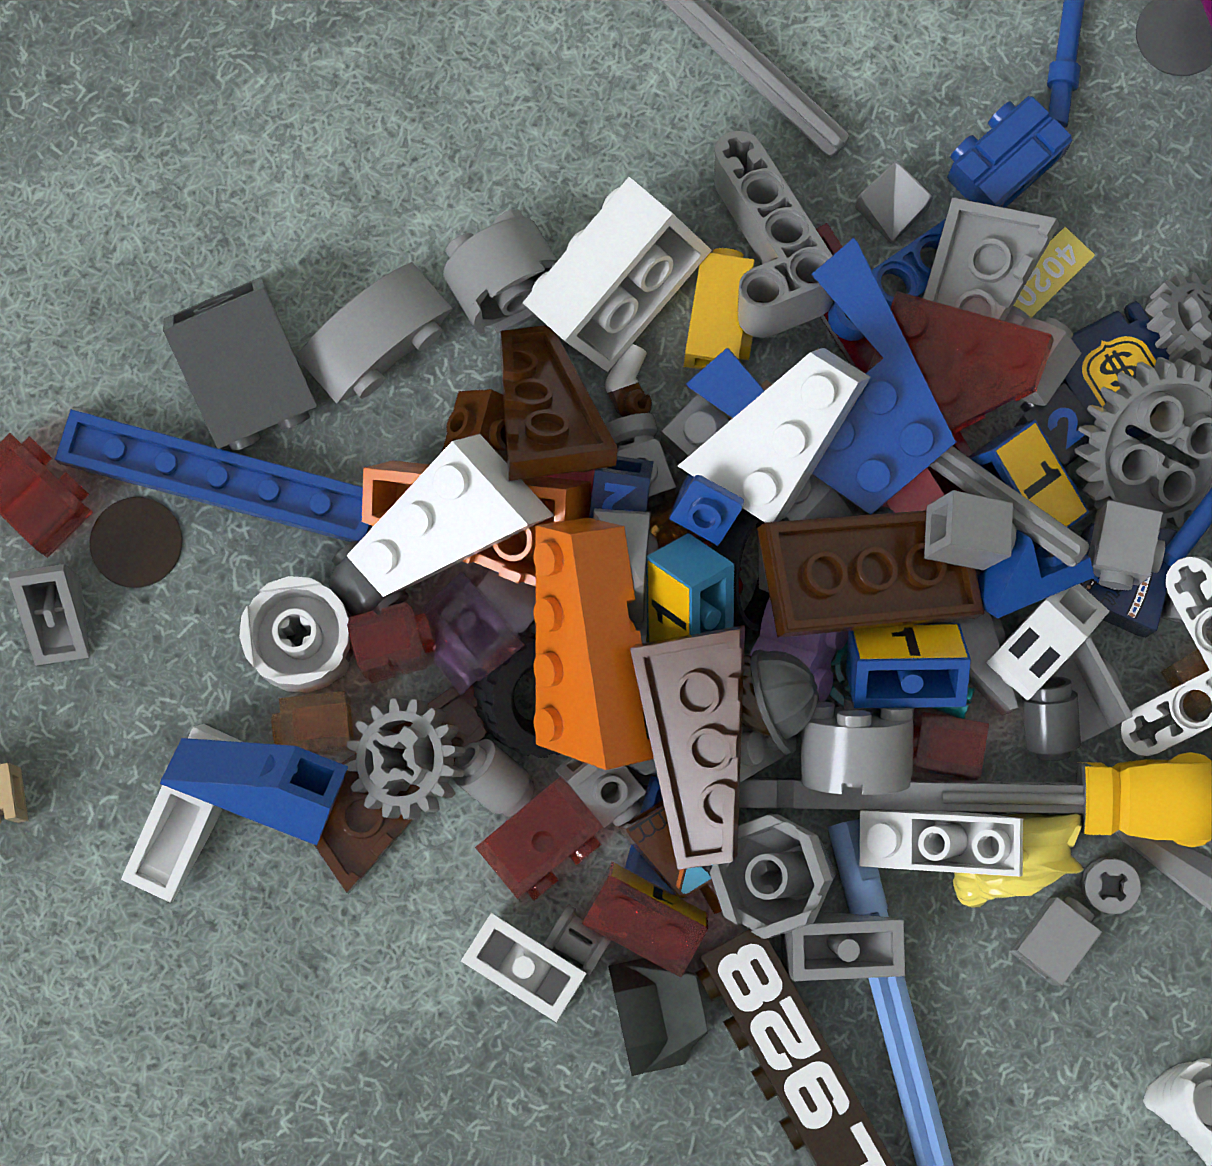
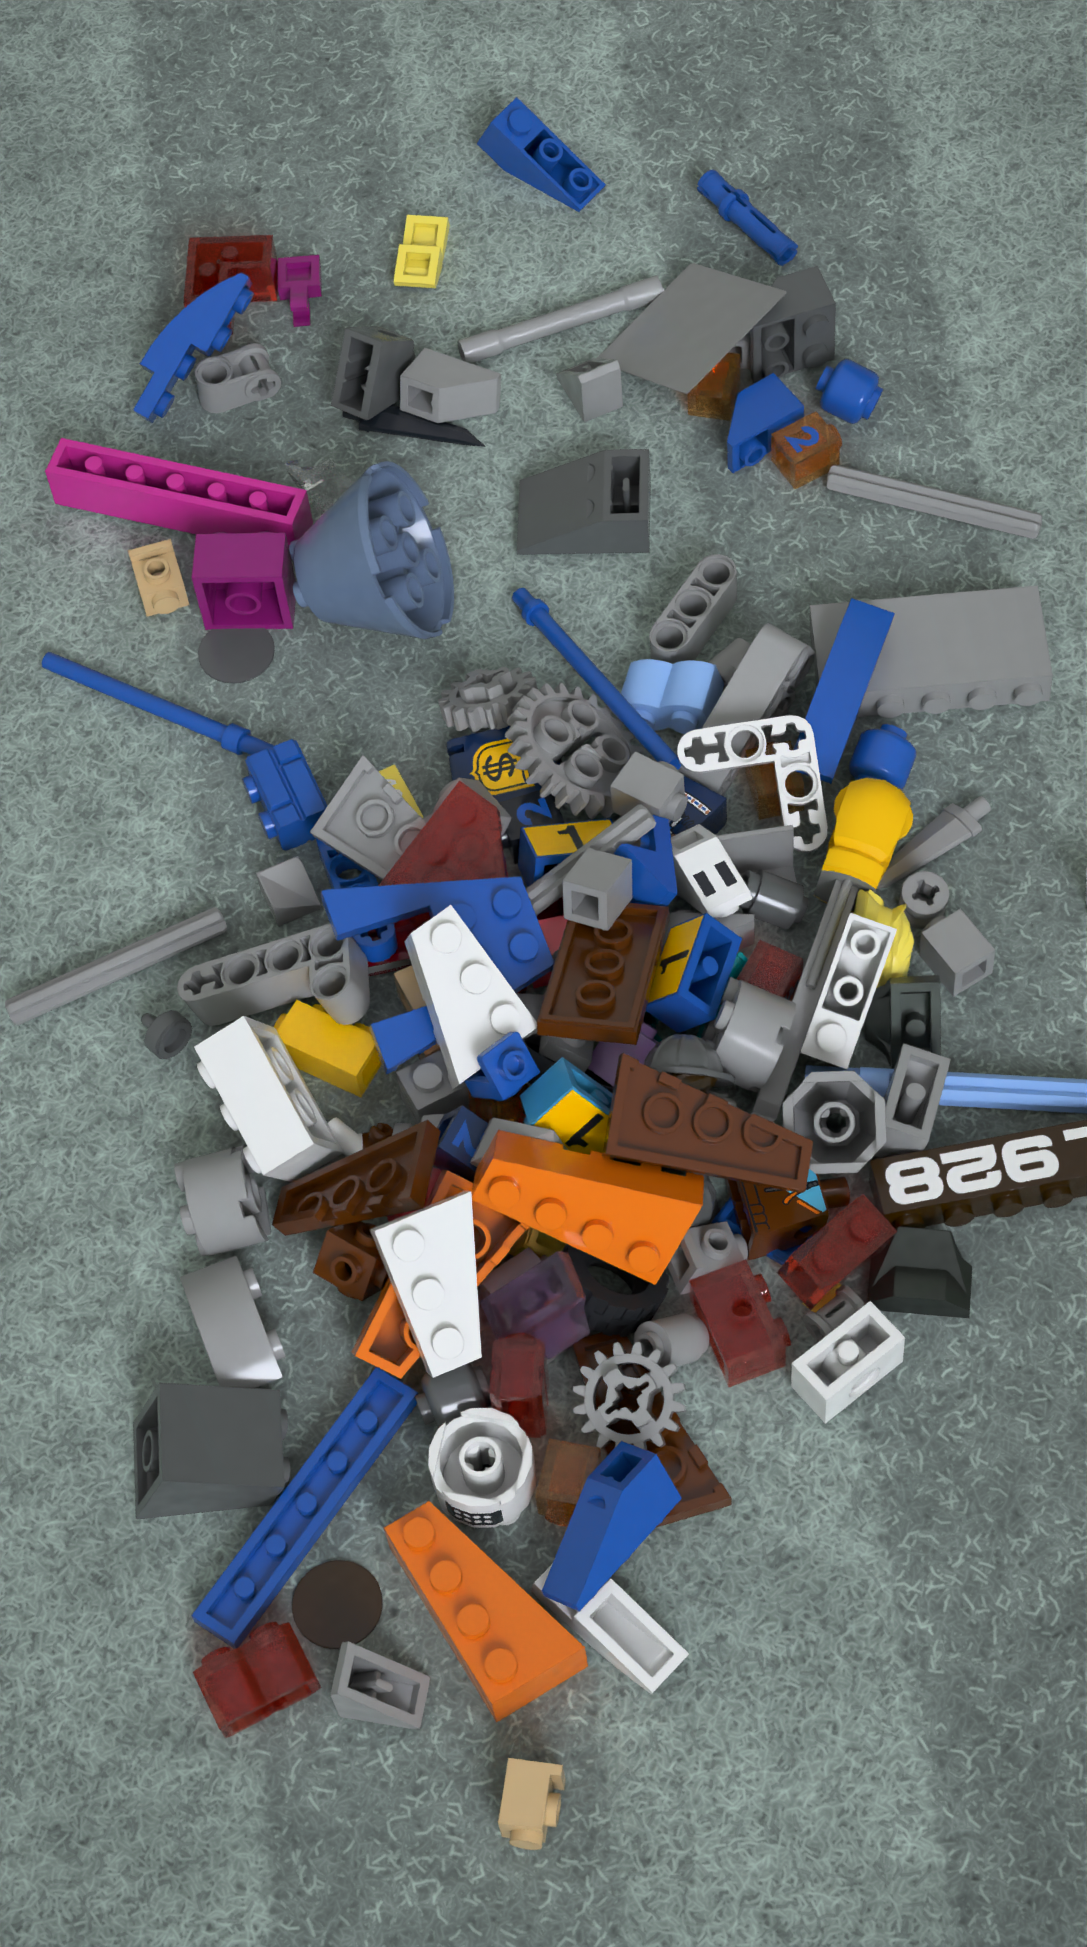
camera: 65 degrees left, 20 degrees down
(148, 690) = (489, 1621): none -> orange wedge
(683, 143) = (166, 1033): none -> dark grey tile
(943, 915) = (906, 1013): none -> pearl dark grey slope

